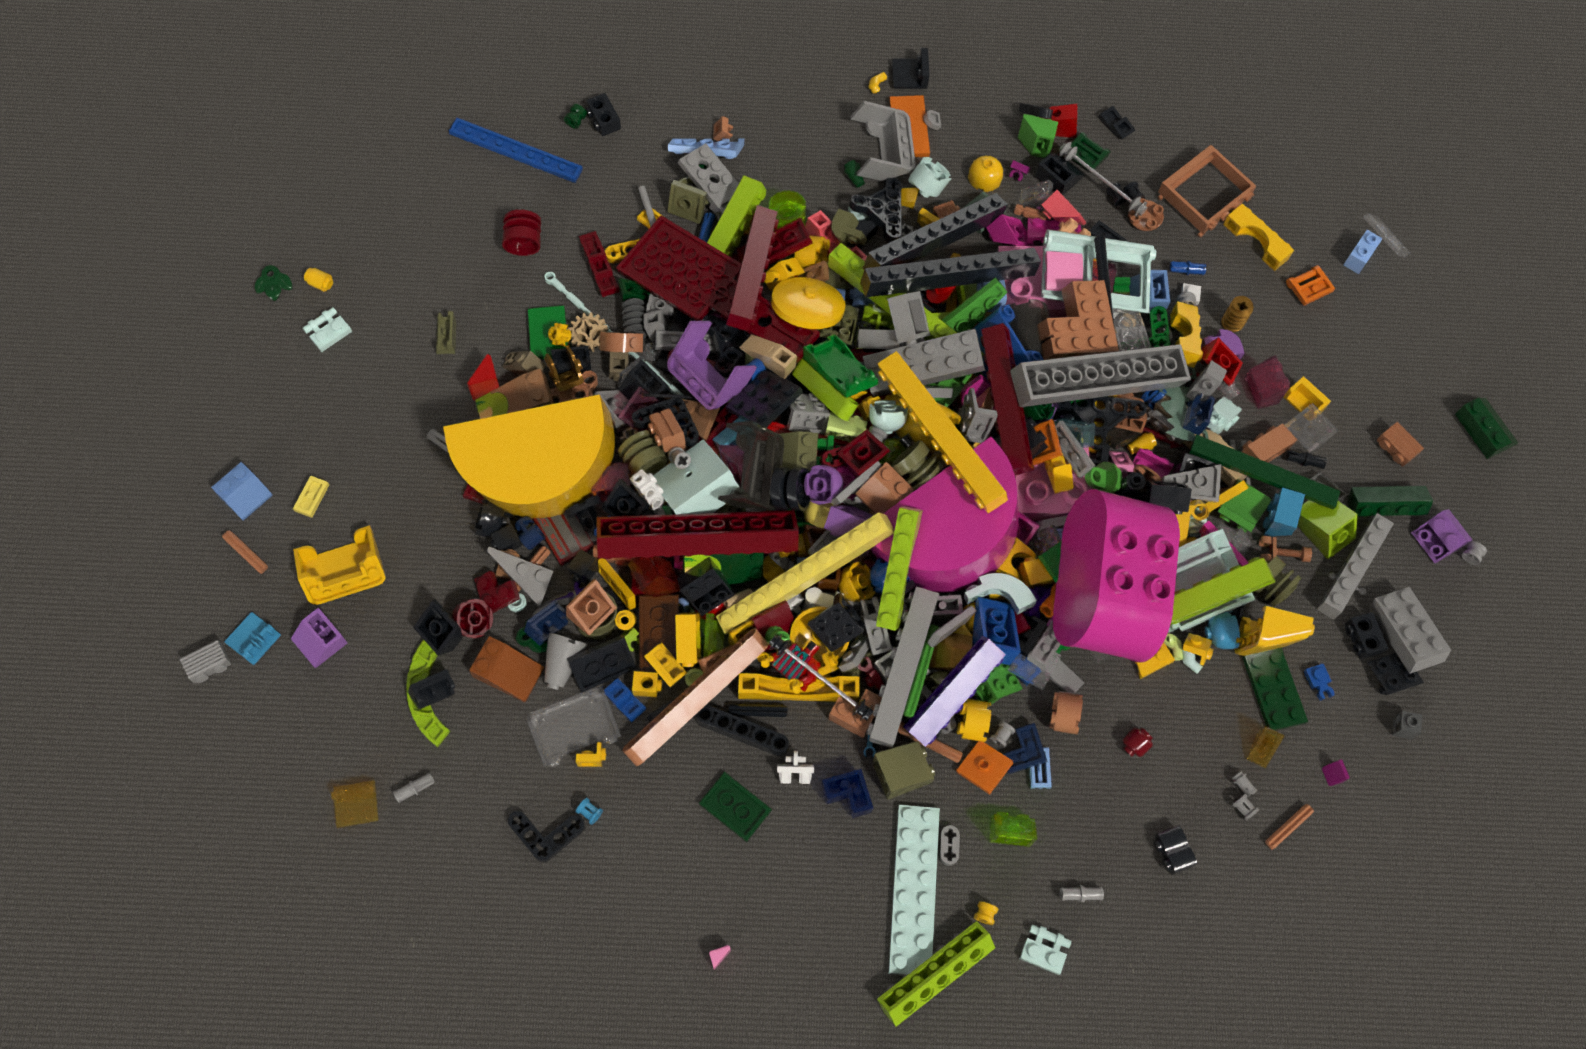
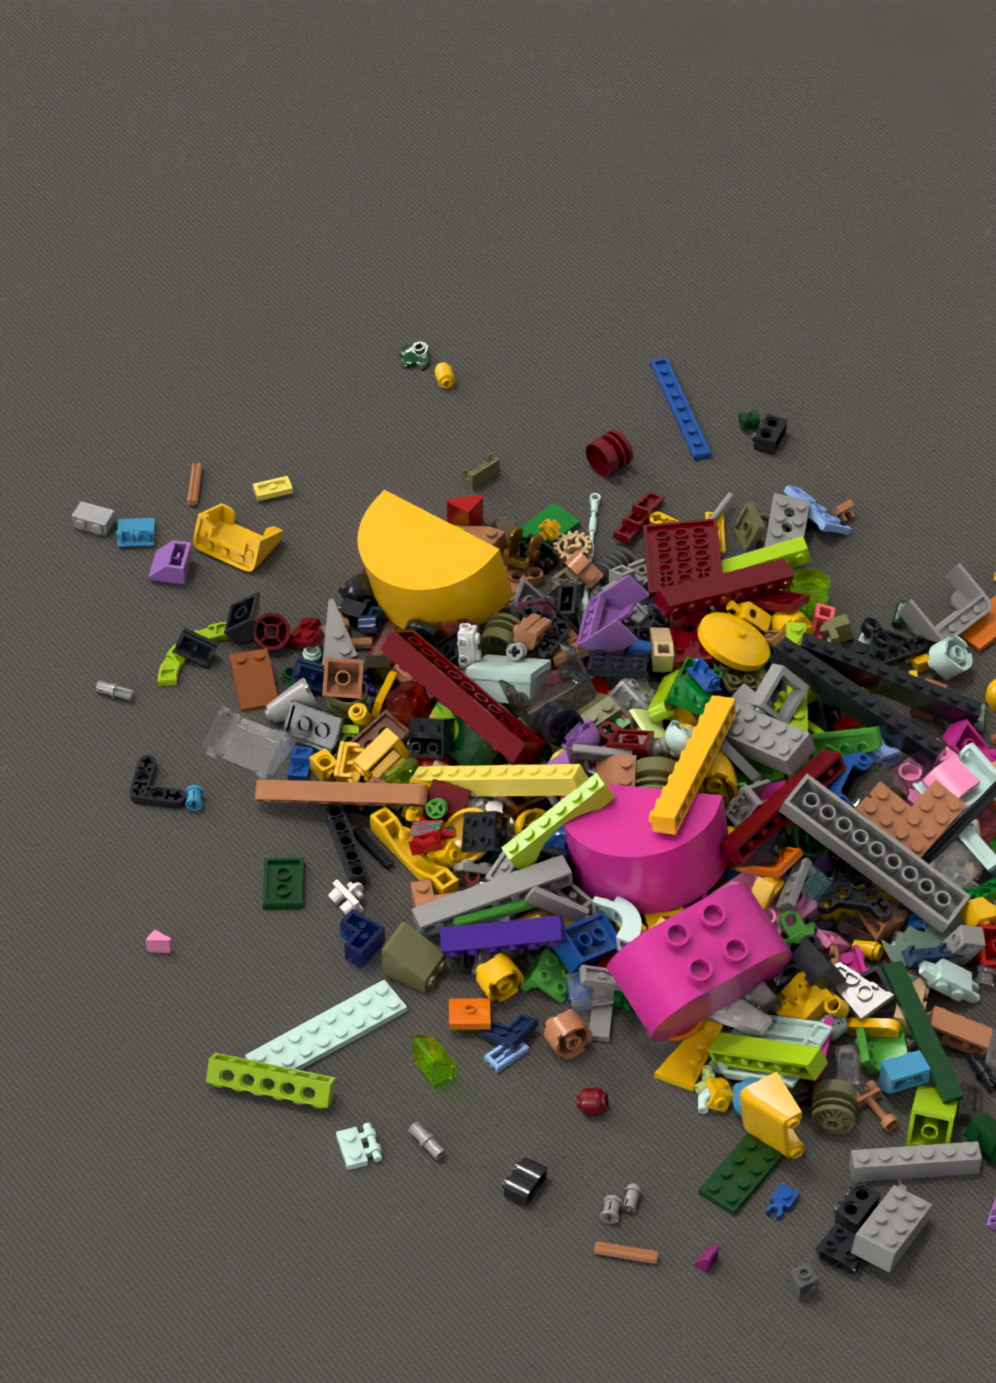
camera: 55 degrees right, 20 degrees down
(241, 491) = (237, 449): medium blue slope -> none
(330, 333) = (409, 412): light aqua plate -> none
(355, 804) = (72, 667): clear yellow hinge -> none
(589, 759) = (235, 773): yellow bracket -> none
(631, 290) = (634, 545): dark green slope -> none
(847, 352) = (705, 677): none -> blue hinge
(860, 707) = (427, 804): axle -> none
(936, 746) = (457, 977): nougat axle -> none
(954, 845) = (383, 1033): light grey beam -> none
(986, 913) = (349, 1086): yellow wheel -> none
(1002, 734) = (508, 1009): light grey bush -> none
(1264, 746) = (679, 1191): clear yellow slope -> none

